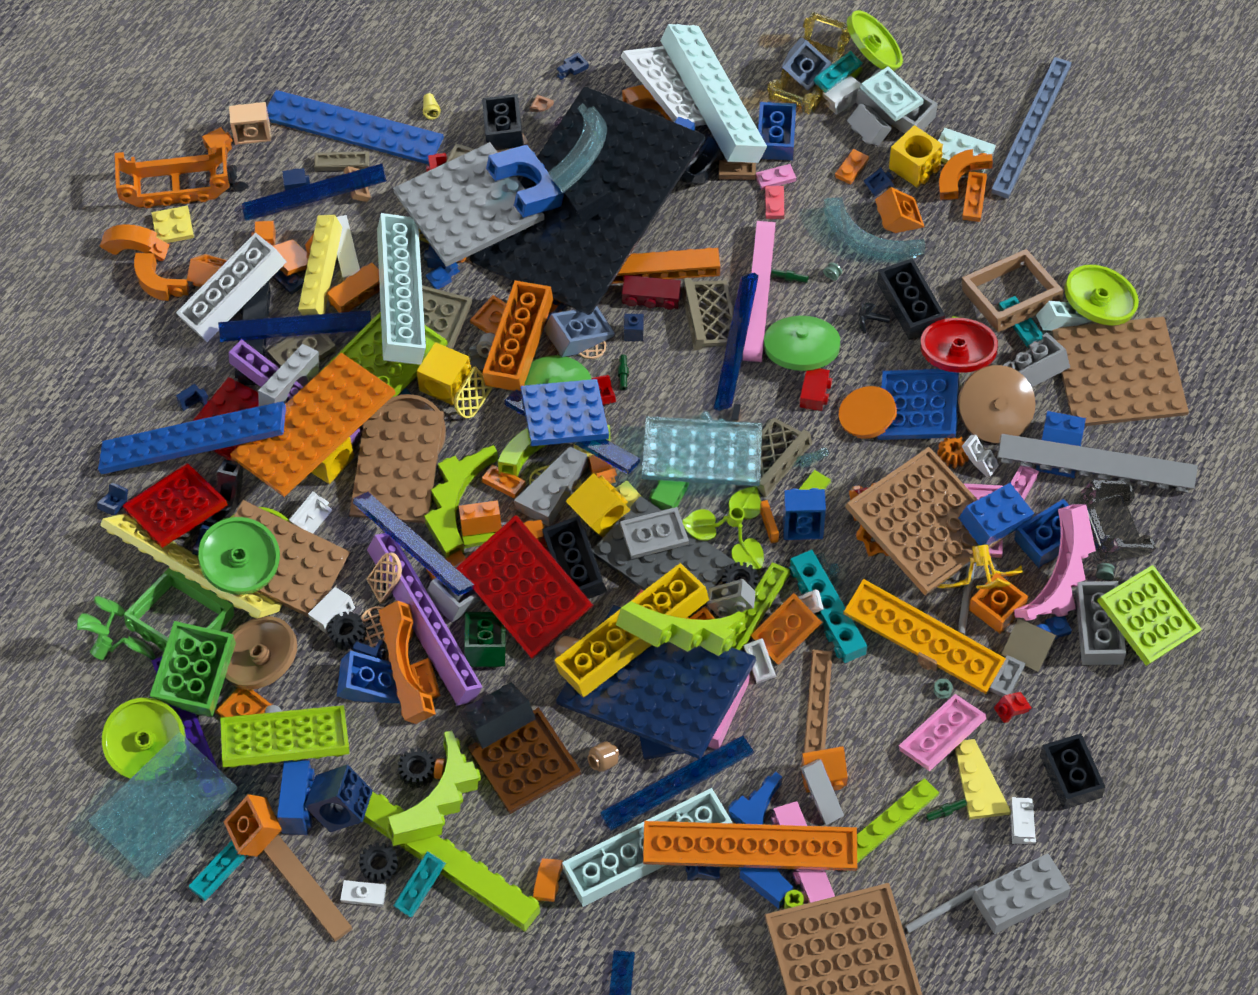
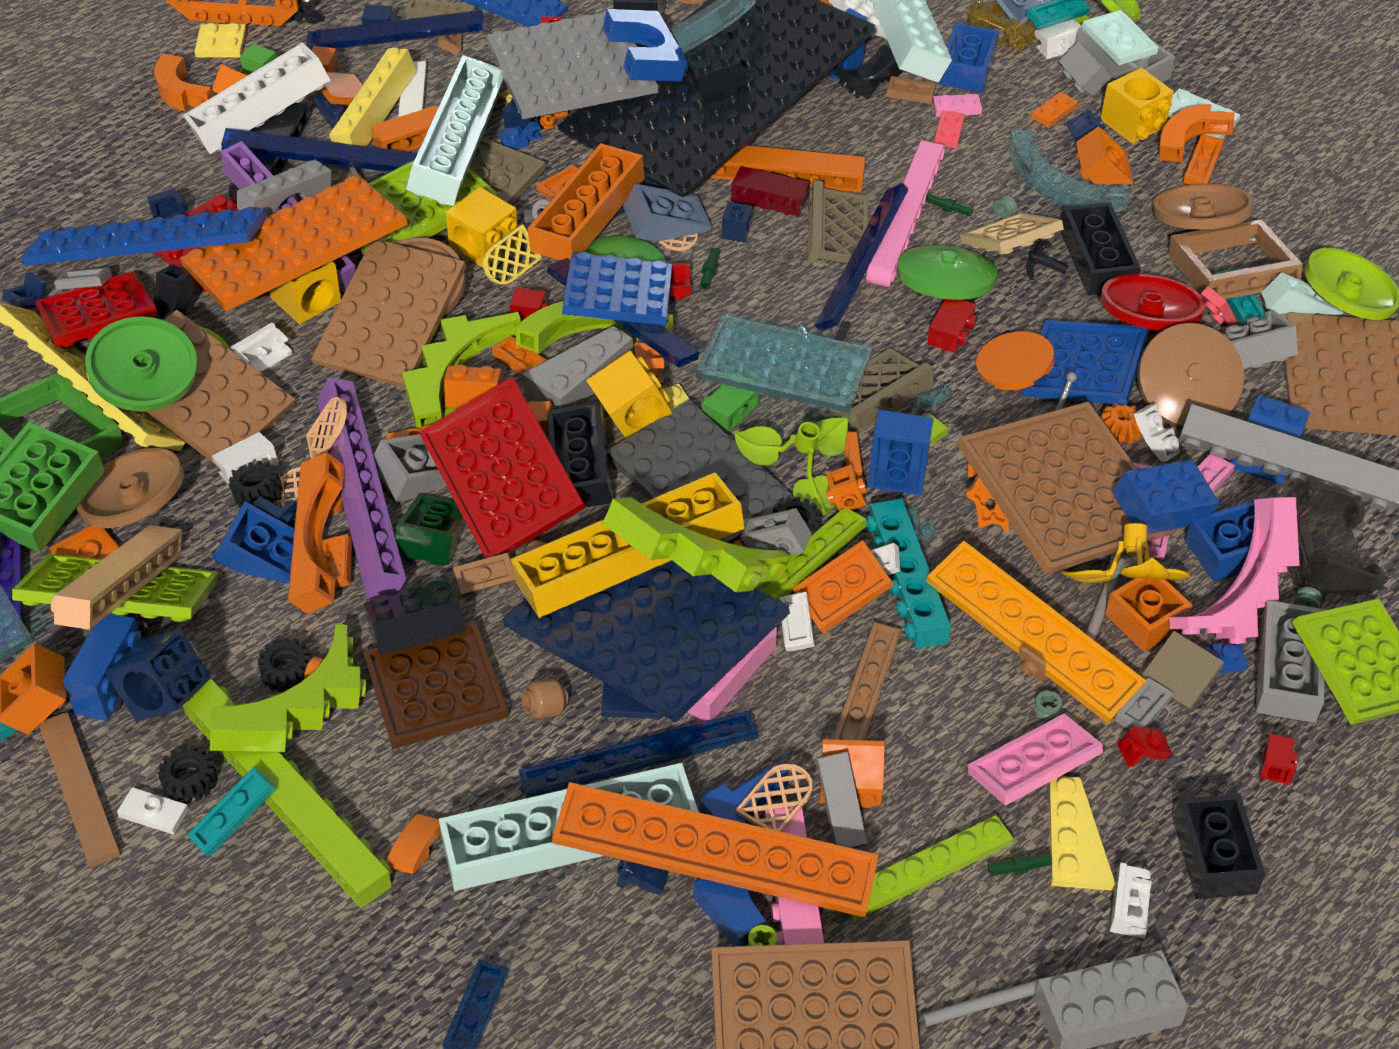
camera: 10 degrees right, 10 degrees down
(133, 237) = (169, 39): orange arch -> none
(152, 478) = (83, 278): none -> light grey tile
(213, 243) = (255, 58): none -> bright green brick
(289, 733) = (116, 577): none -> light nougat brick
(413, 543) = (375, 398): clear blue tile -> none
(498, 435) = (527, 302): none -> red brick
(532, 668) = (483, 574): none -> medium nougat plate
(654, 533) = (694, 441): light grey plate -> none
(763, 801) = (741, 811): none -> light nougat window
(770, 548) = (846, 489): none -> orange brick
(843, 298) = (1012, 232): none -> tan plate
(912, 424) = (1071, 377): none -> light grey hinge
(981, 244) = (1203, 206): none -> medium nougat dish
(1006, 338) = (1218, 308): none -> coral plate
(1031, 128) = (1288, 106): sand blue plate -> none
(1102, 698) = (1279, 759): none -> red brick

